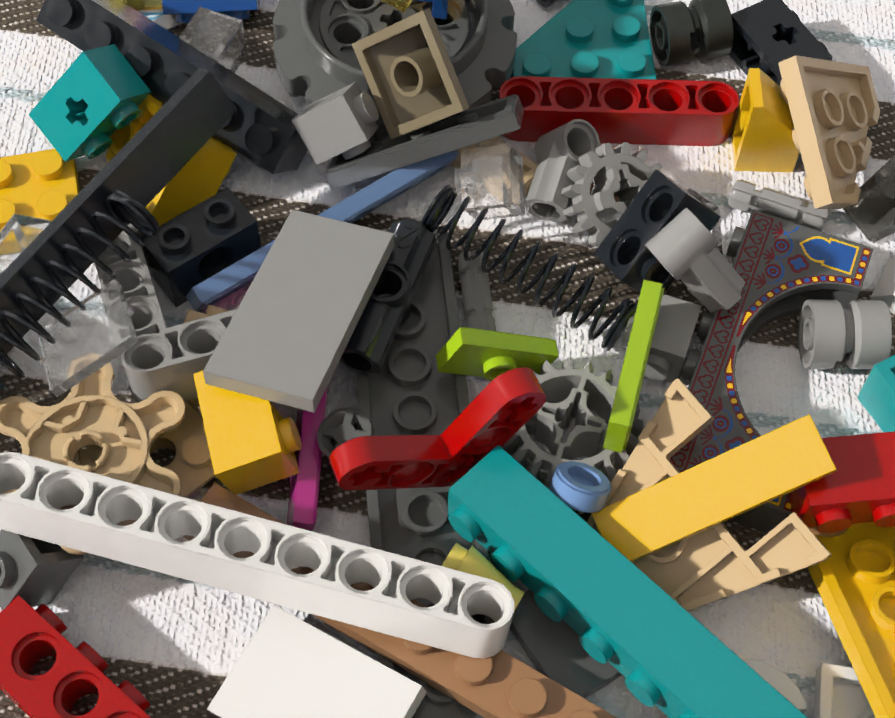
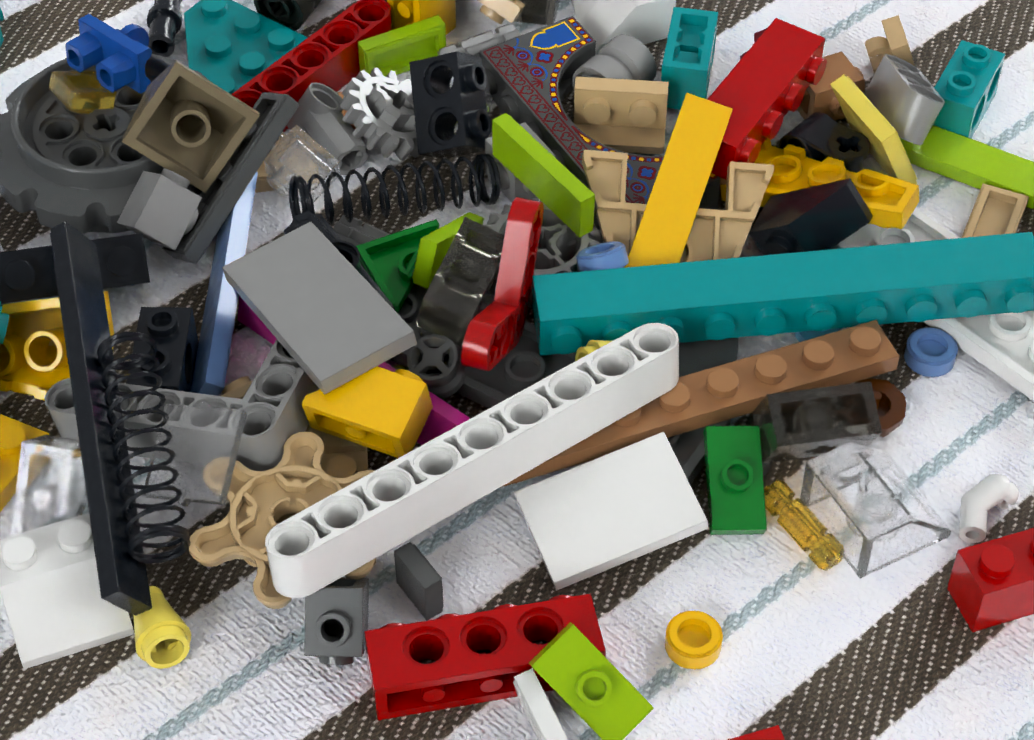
camera: 50 degrees left, 10 degrees down
(123, 598) = (419, 580): none -> dark grey tile
(435, 323) = (393, 259): none -> green tile
(436, 393) = (461, 281): none -> clear smoke brick
(691, 255) = (498, 89): light grey piece -> none
(708, 152) = (402, 45): none -> lime tile
(796, 373) = (622, 113): none -> tan bracket
(809, 634) = (810, 218): none -> black slope

